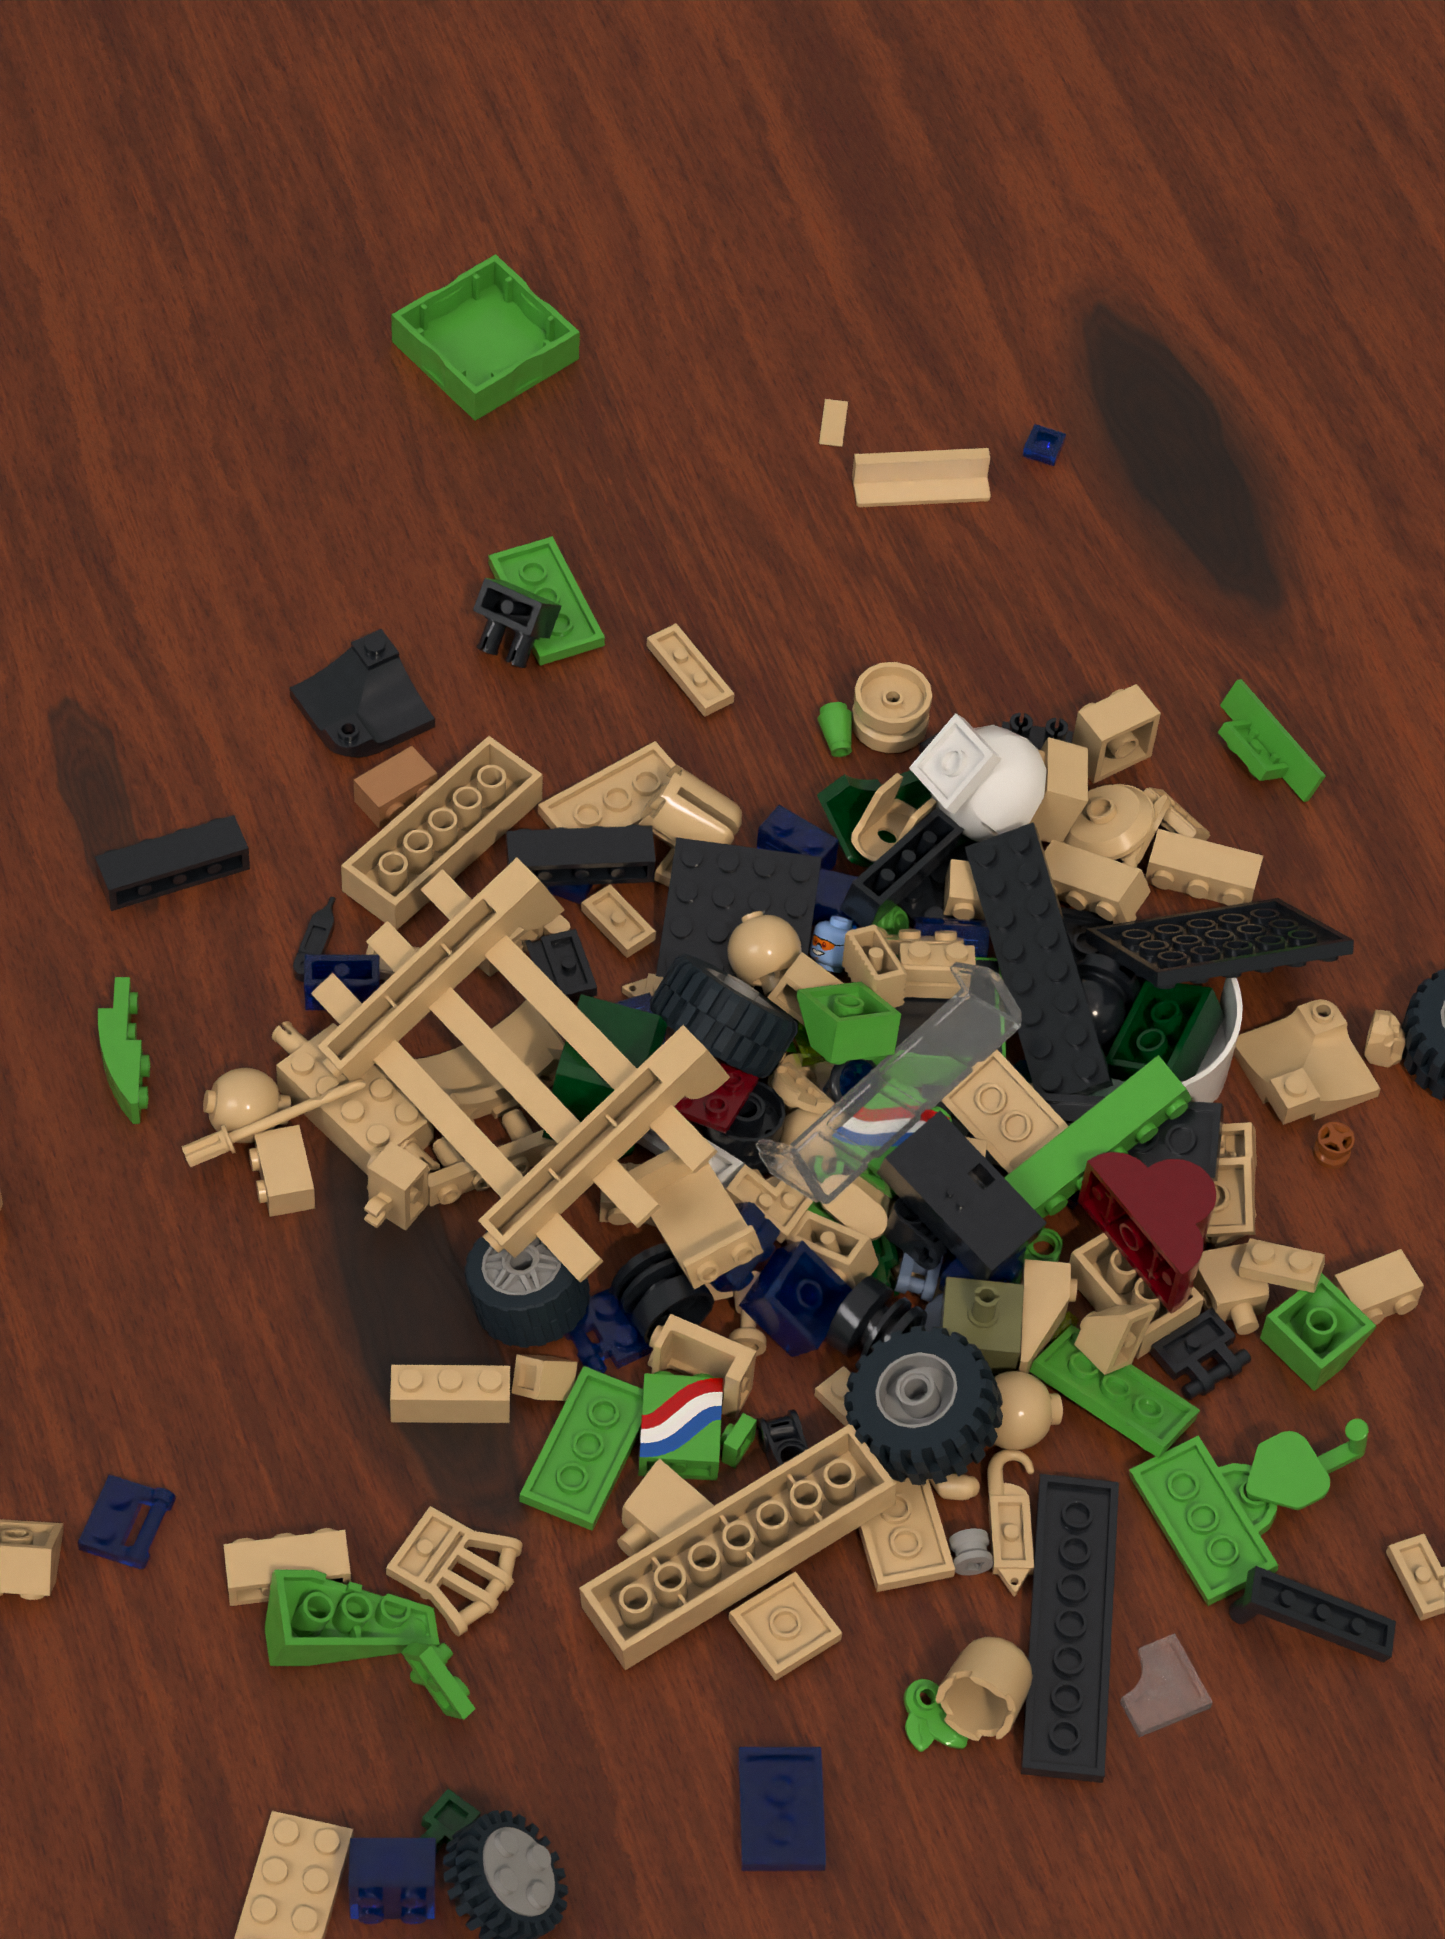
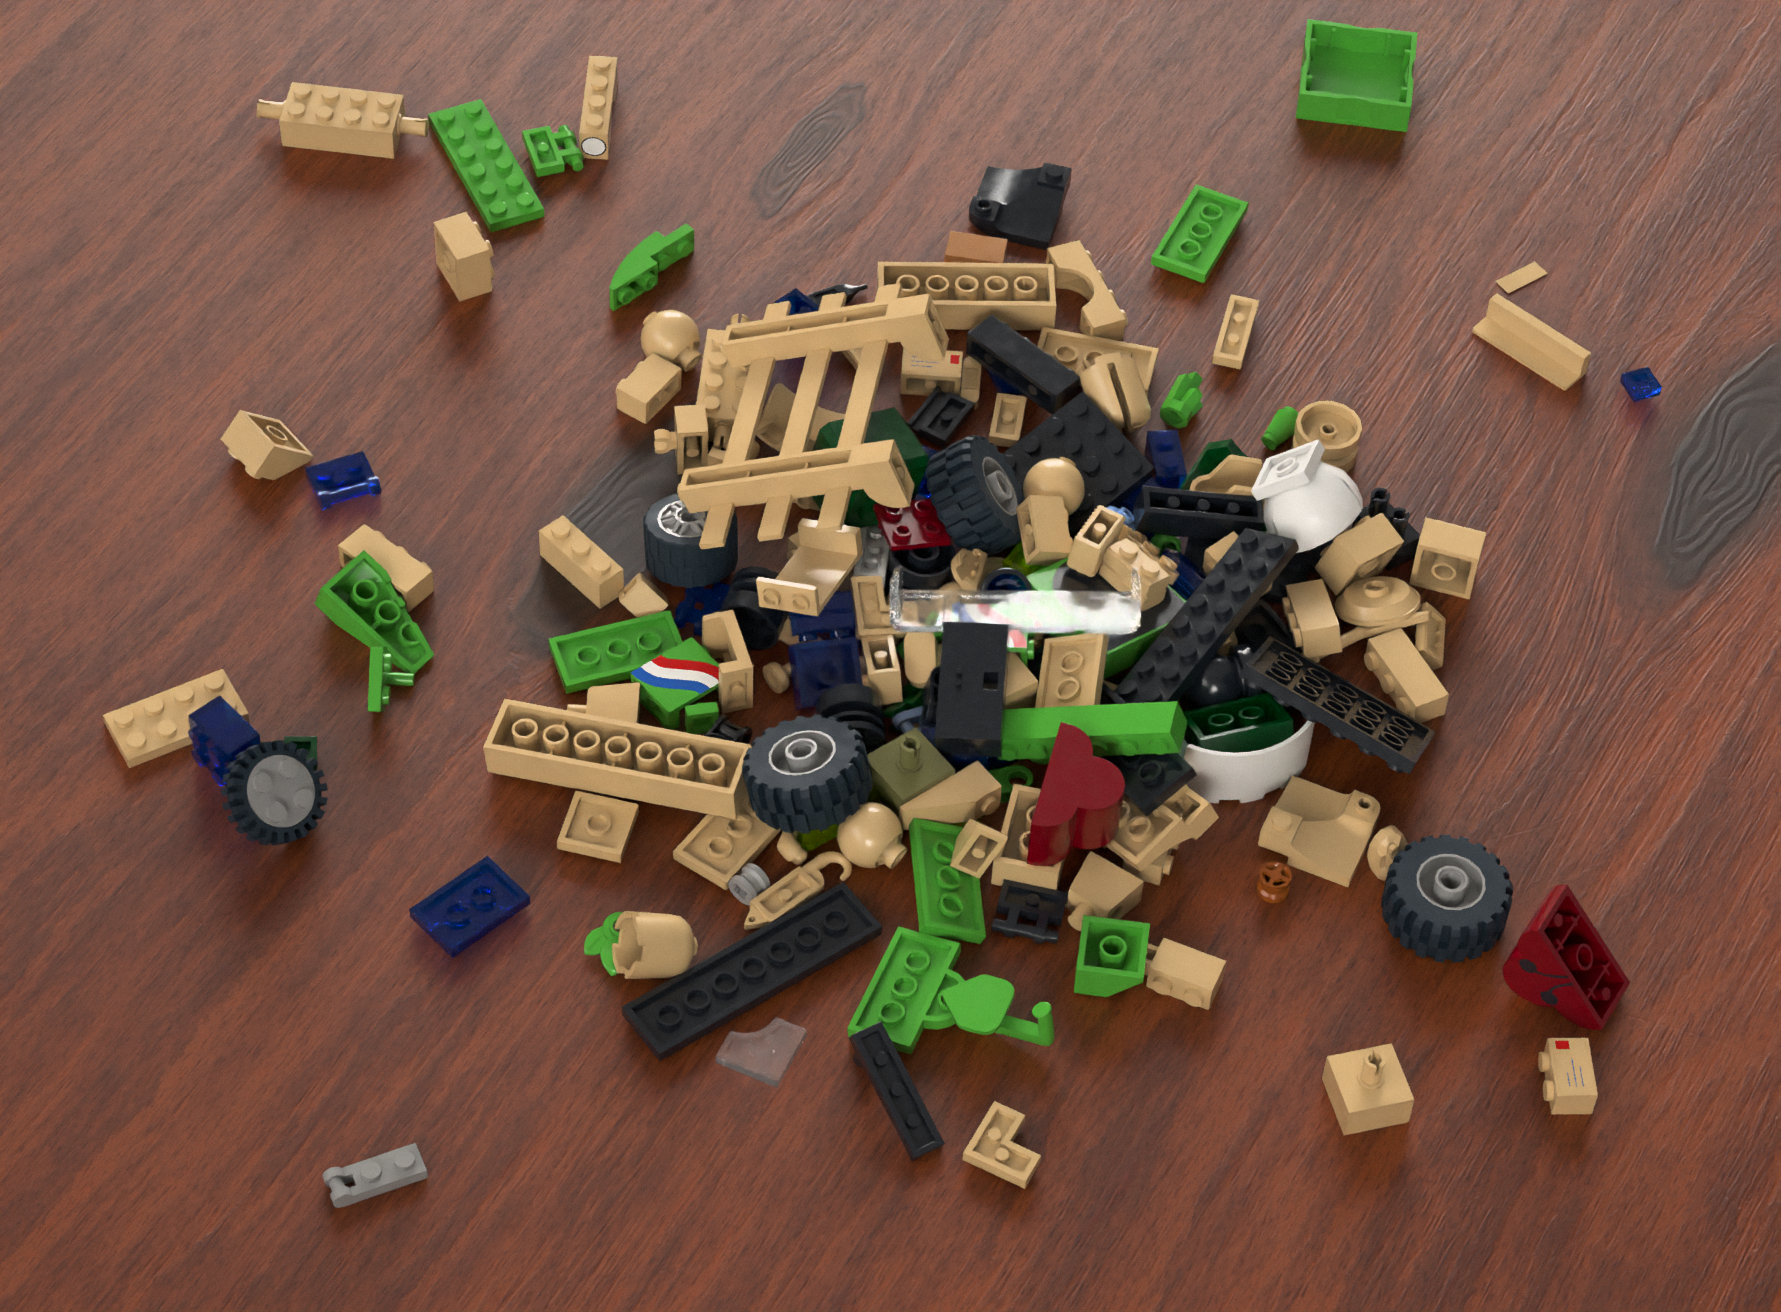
camera: 50 degrees right, 5 degrees down
(172, 862) = (800, 199): black brick -> none
(222, 1141) = (633, 344): tan piece -> none
(433, 1551) = (467, 627): tan plate -> none
(516, 608) = (1160, 220): black brick -> none
(571, 750) = (1077, 272): none -> tan arch
(734, 773) = (1182, 400): none -> bright green rock
(848, 1022) = (1032, 548): bright green slope -> none
(1266, 744) = (1545, 644): bright green bracket -> none
(1282, 1265) = (1130, 898): tan plate -> none

